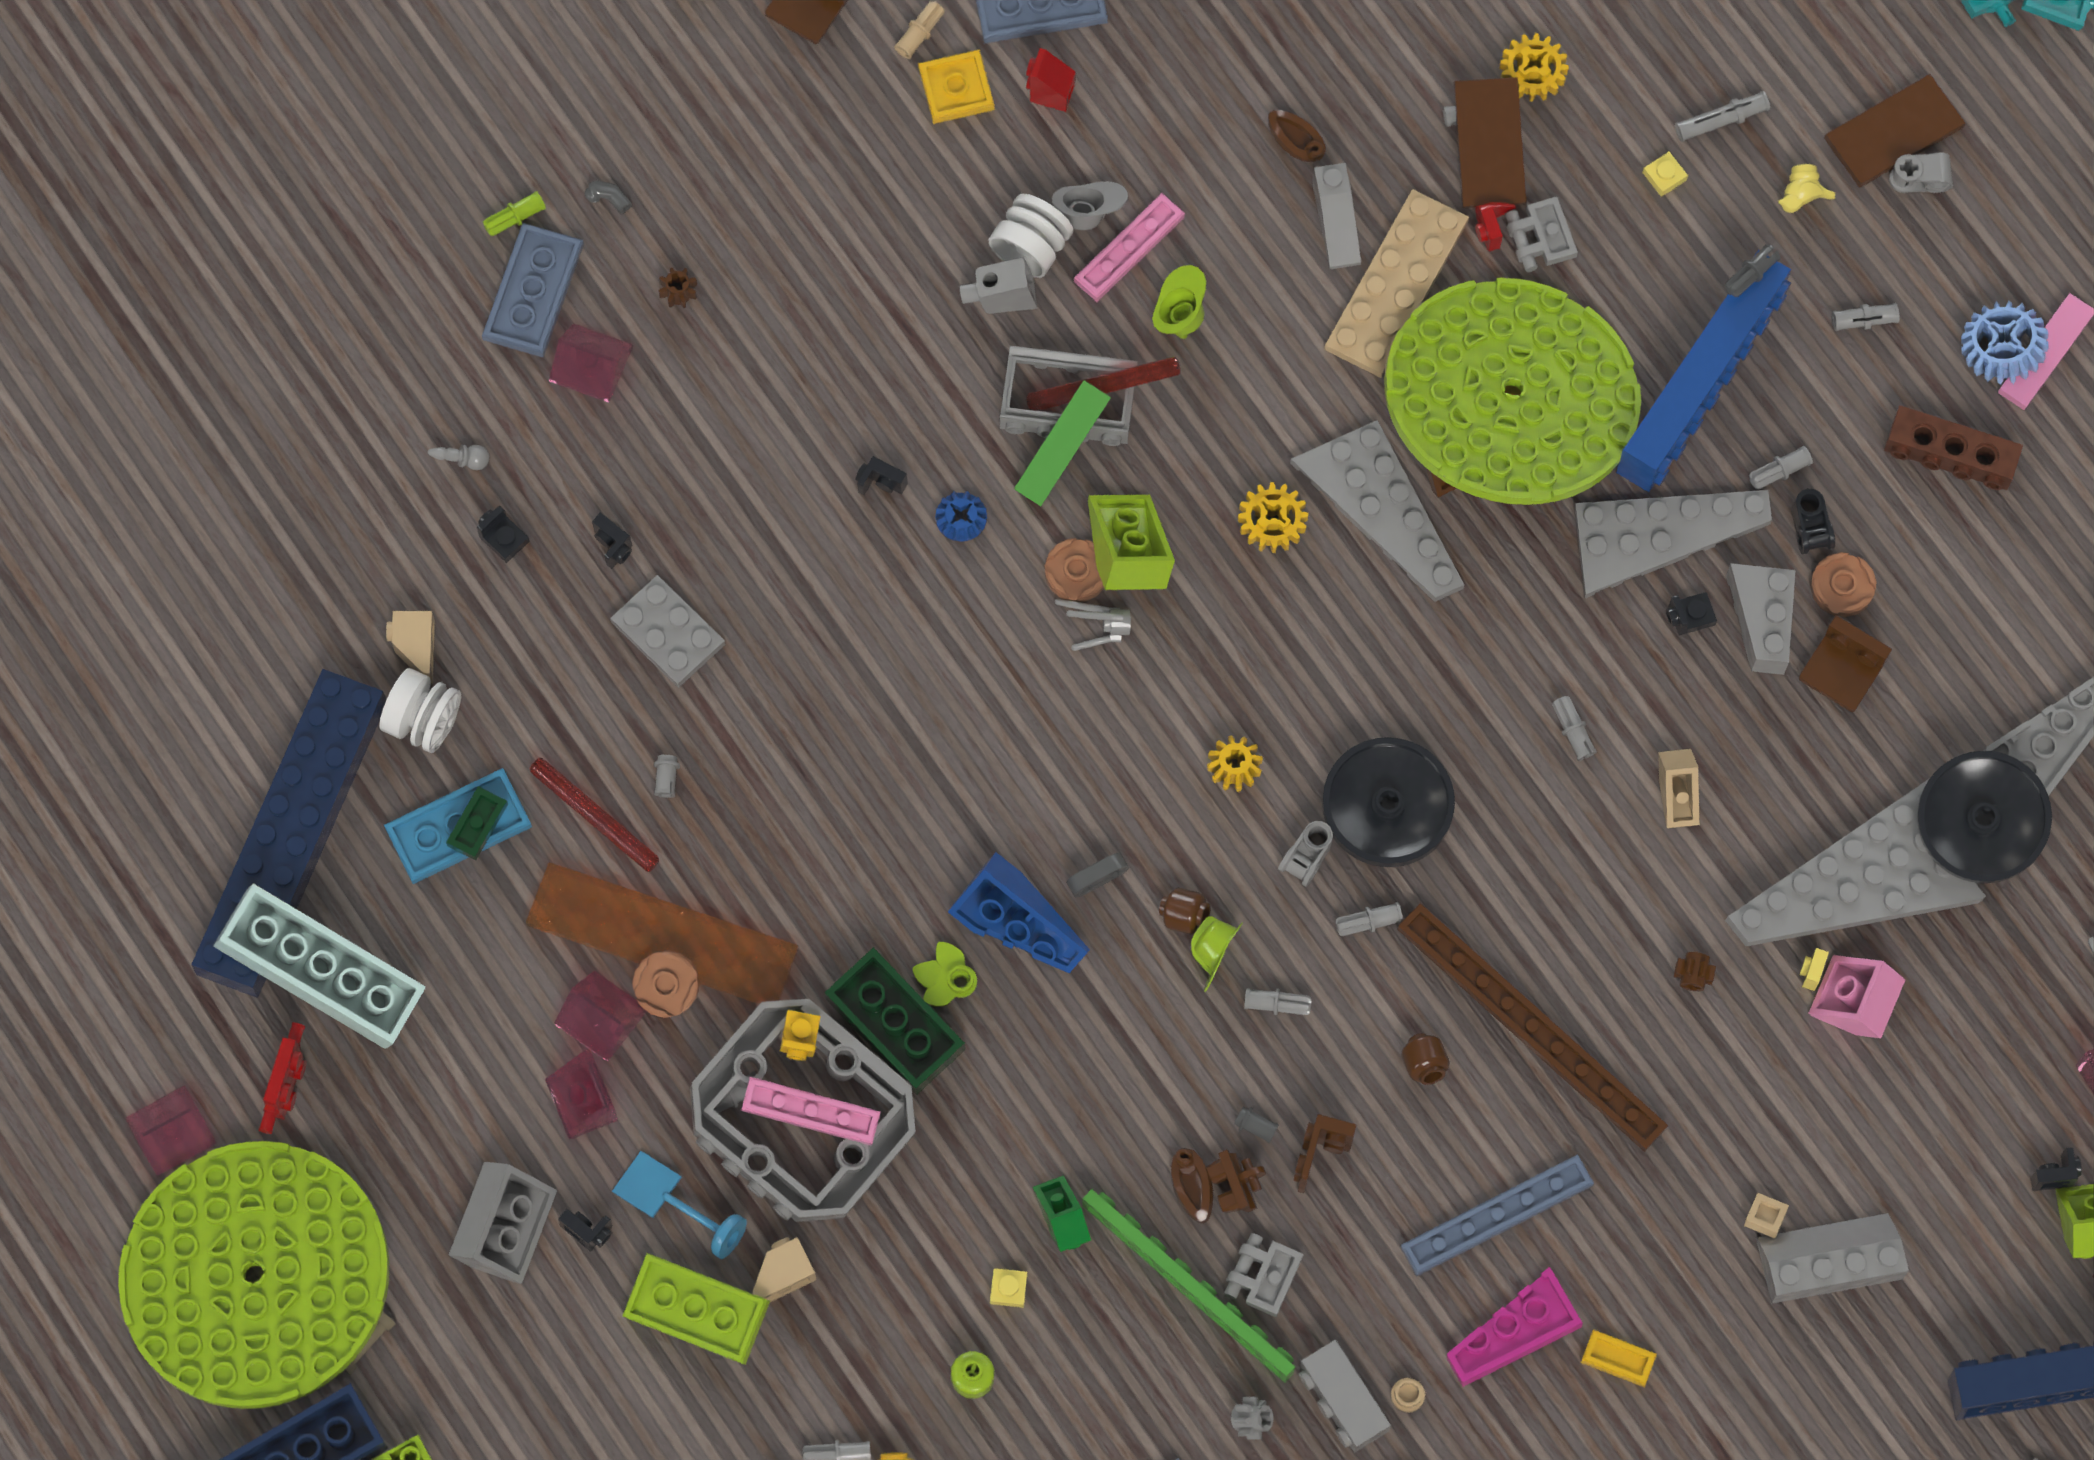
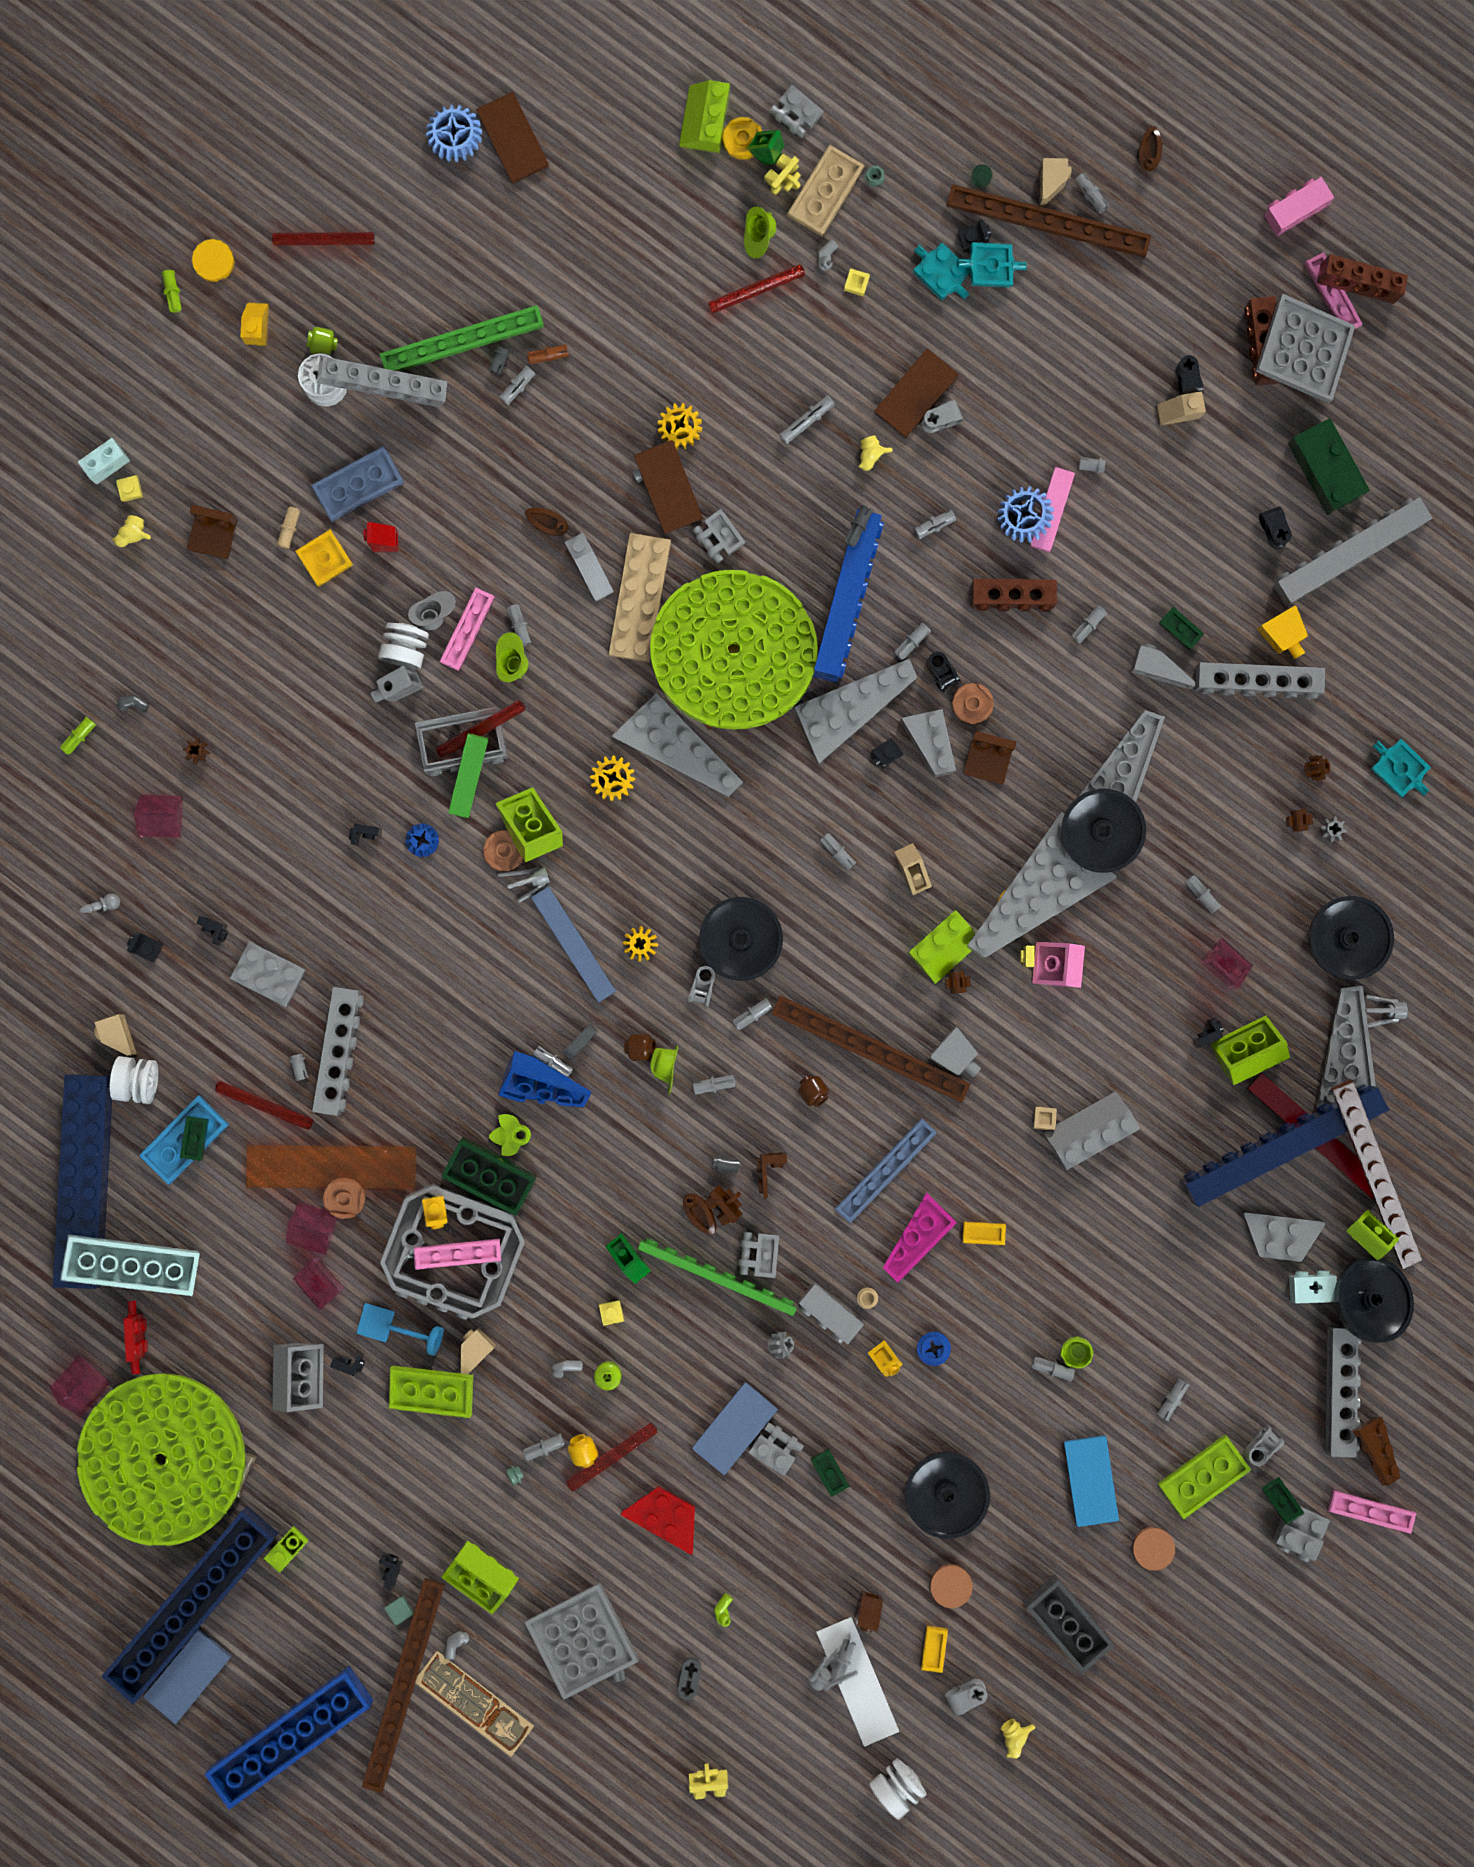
camera: 20 degrees left, 15 degrees up
(533, 290) = (107, 781): sand blue tile -> none
(763, 696) = (332, 1039): none -> light grey brick
(911, 1341) = (567, 1365): none -> light grey arm
(1046, 888) = (552, 1061): none -> light grey axle
(1134, 734) = (573, 944): none -> sand blue tile
(1208, 262) = (518, 623): none -> light grey axle
(1488, 227) = (685, 544): red plate -> none
(1659, 1075) = (956, 1054): none -> light grey torso
(1665, 174) = (783, 469): light yellow plate -> none
(1688, 913) = (943, 947): none -> lime slope
(2053, 526) = (1089, 624): none -> light grey axle

